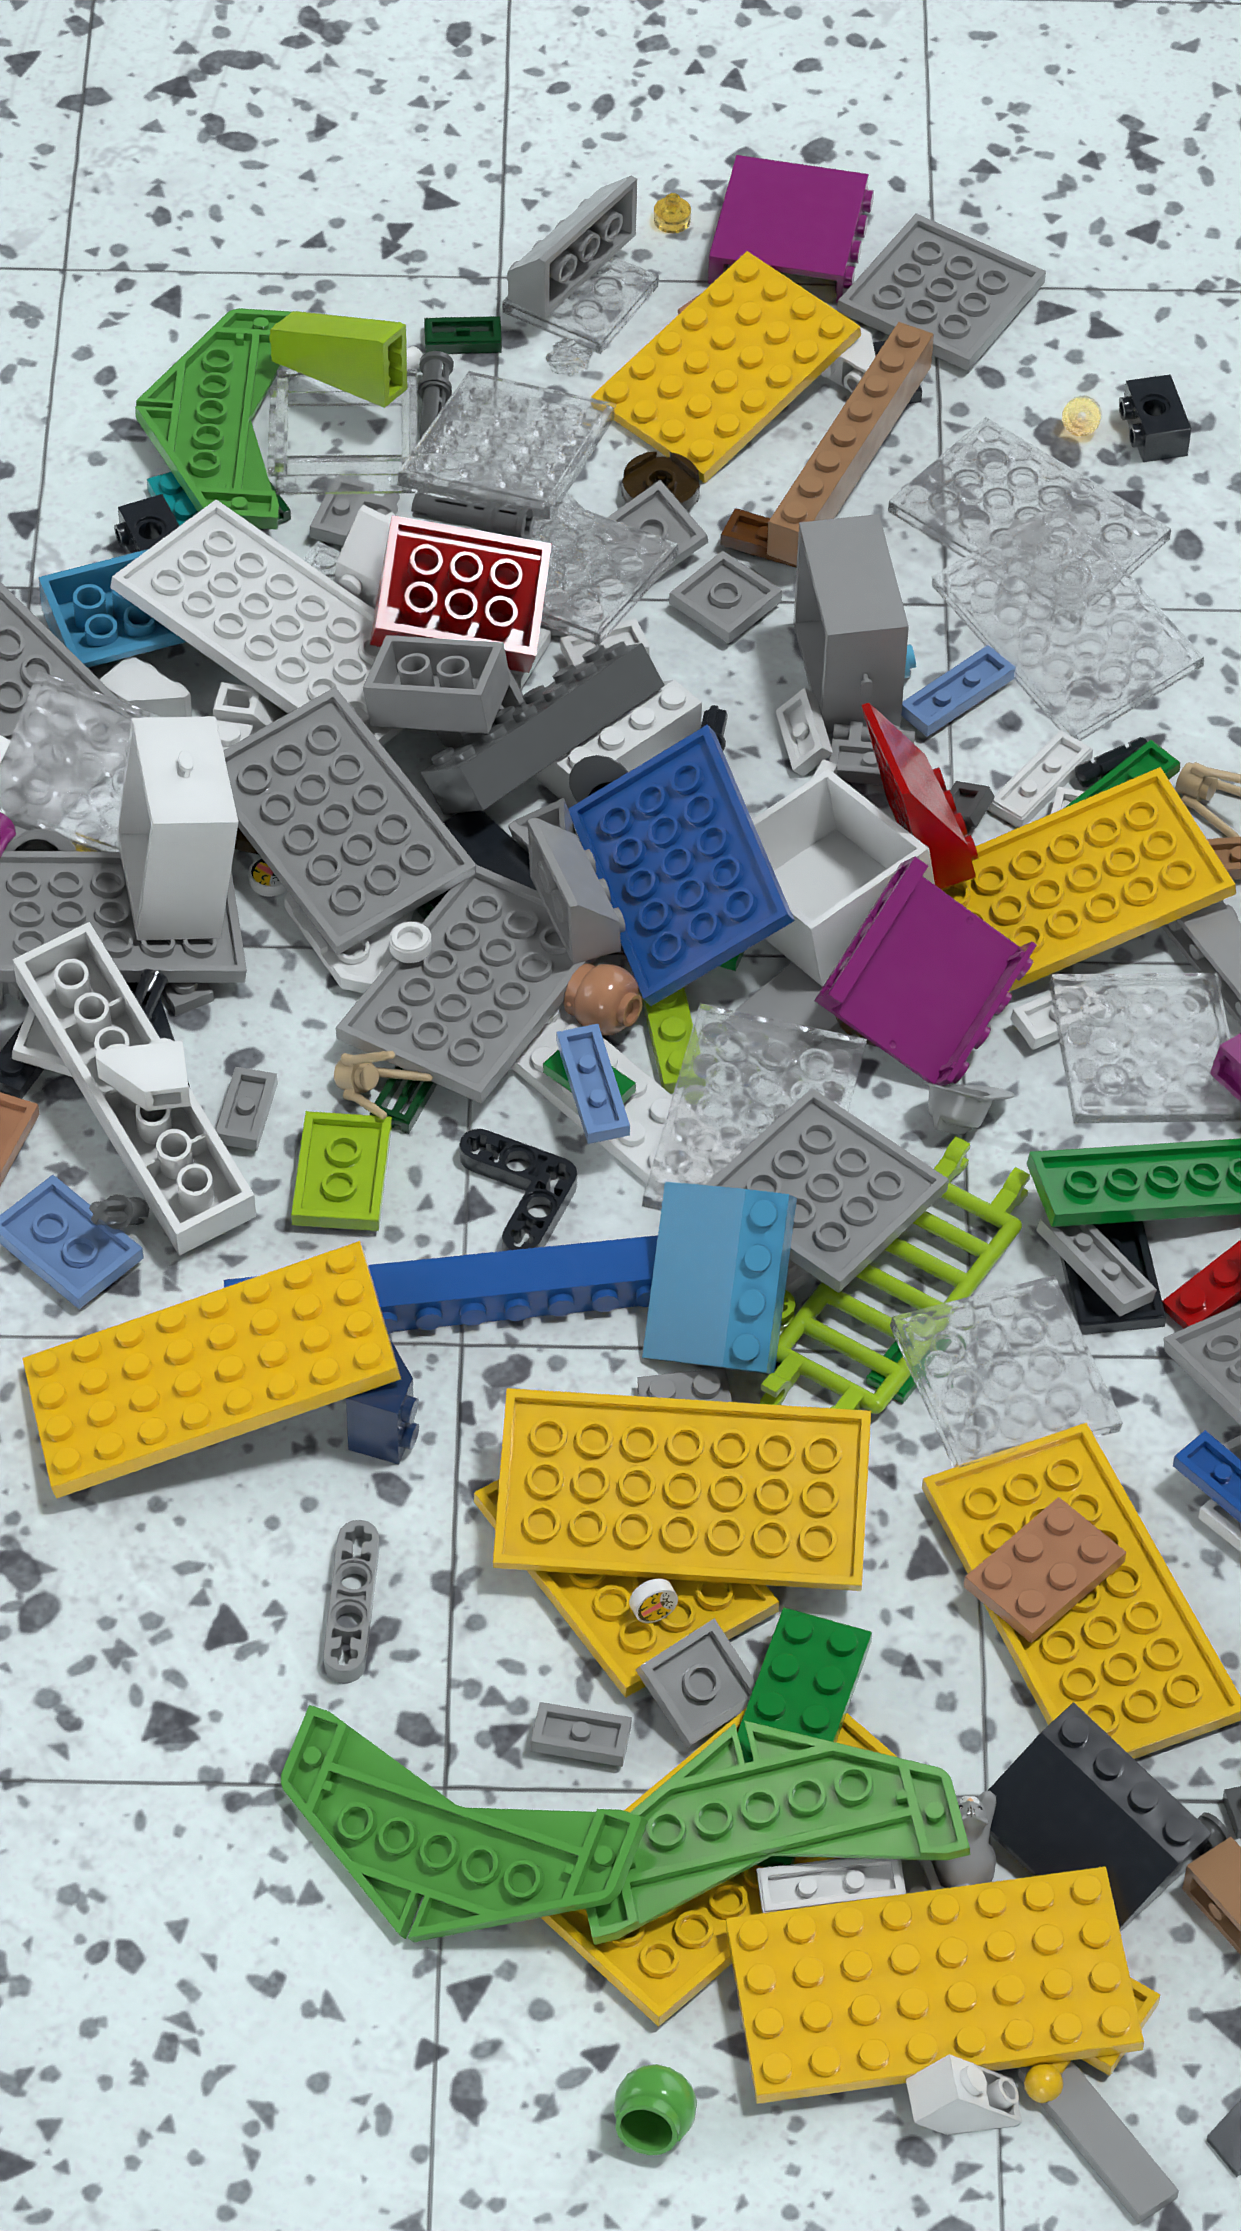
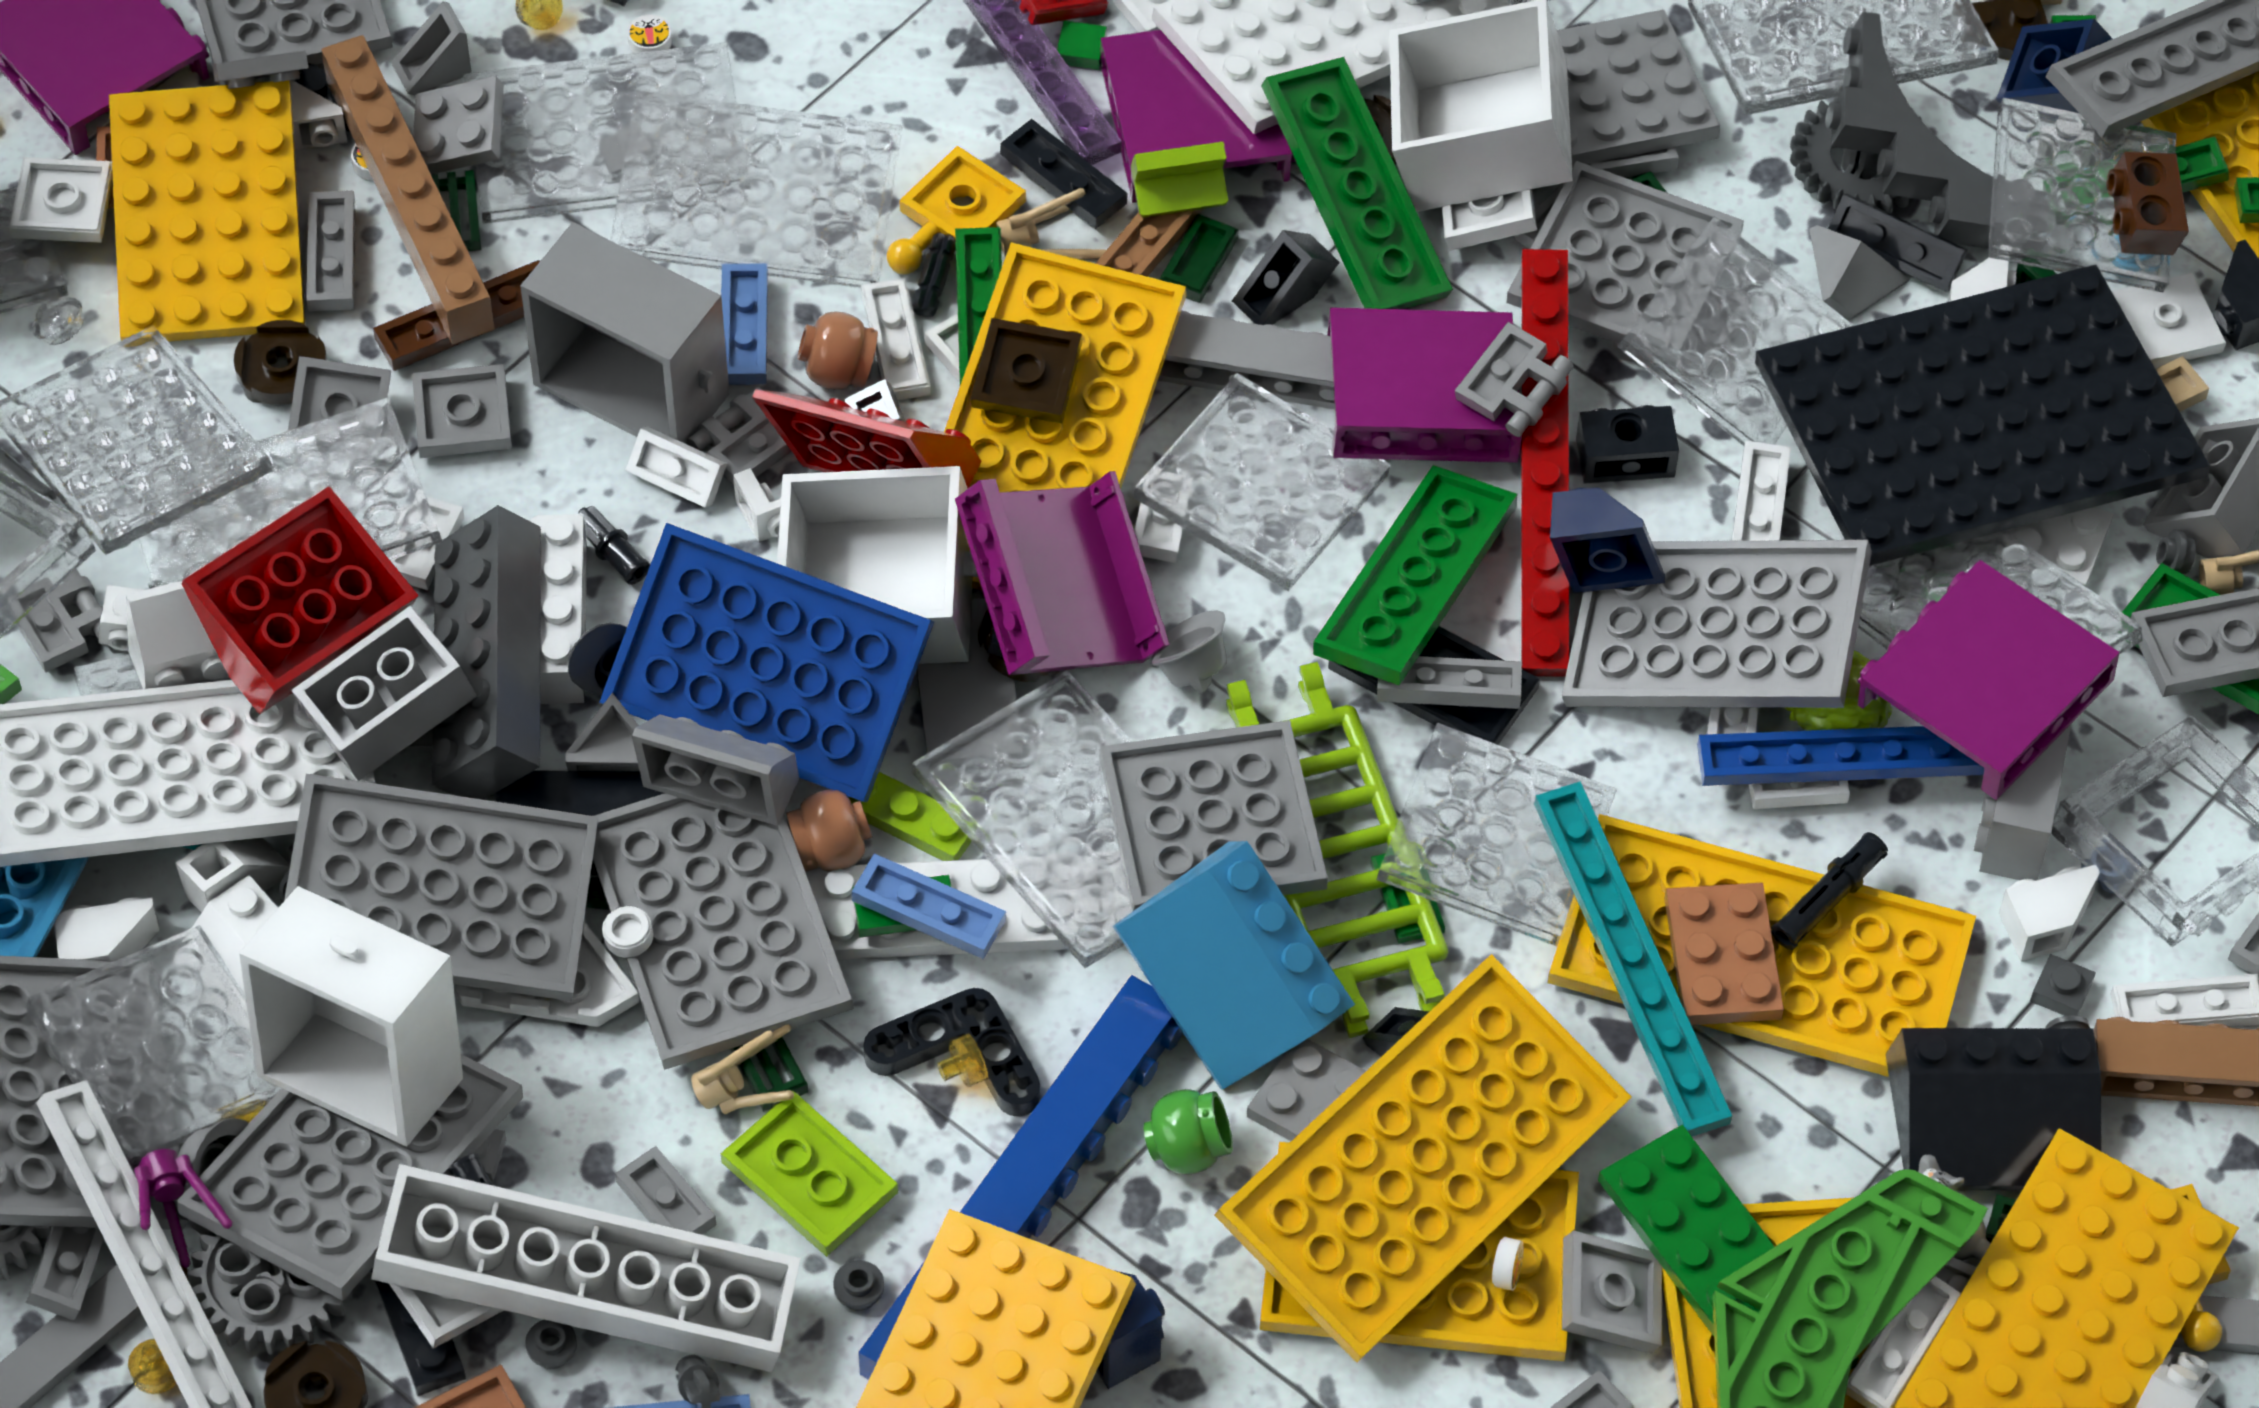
camera: 50 degrees left, 5 degrees up
(81, 1132) = (550, 1356): none -> dark grey plate
(147, 1073) = (616, 1242): white slope -> none
(284, 1244) = (861, 1297): none -> dark grey plate
(487, 517) = (220, 513): dark grey pin -> none
(507, 1194) = (964, 1061): none -> clear yellow tile
(579, 1352) = (1188, 1131): none -> bright green piece
(651, 292) = (62, 200): none -> white plate
(772, 449) = (331, 251): none -> light grey plate
(853, 308) = (279, 67): none -> light grey plate
(872, 484) = (452, 185): none -> dark green tile
(937, 440) = (459, 124): none -> light grey plate
(976, 1515) = (1632, 960): none -> teal plate
(986, 390) = (434, 53): none -> light grey slope
(986, 749) = (838, 351): none -> nougat piece
(1068, 846) = (1026, 370): none -> dark brown plate
(1132, 487) = (649, 34): none -> tile
(1169, 721) = (932, 205): none -> yellow plate
(1171, 1598) = (1843, 877): none -> black pin

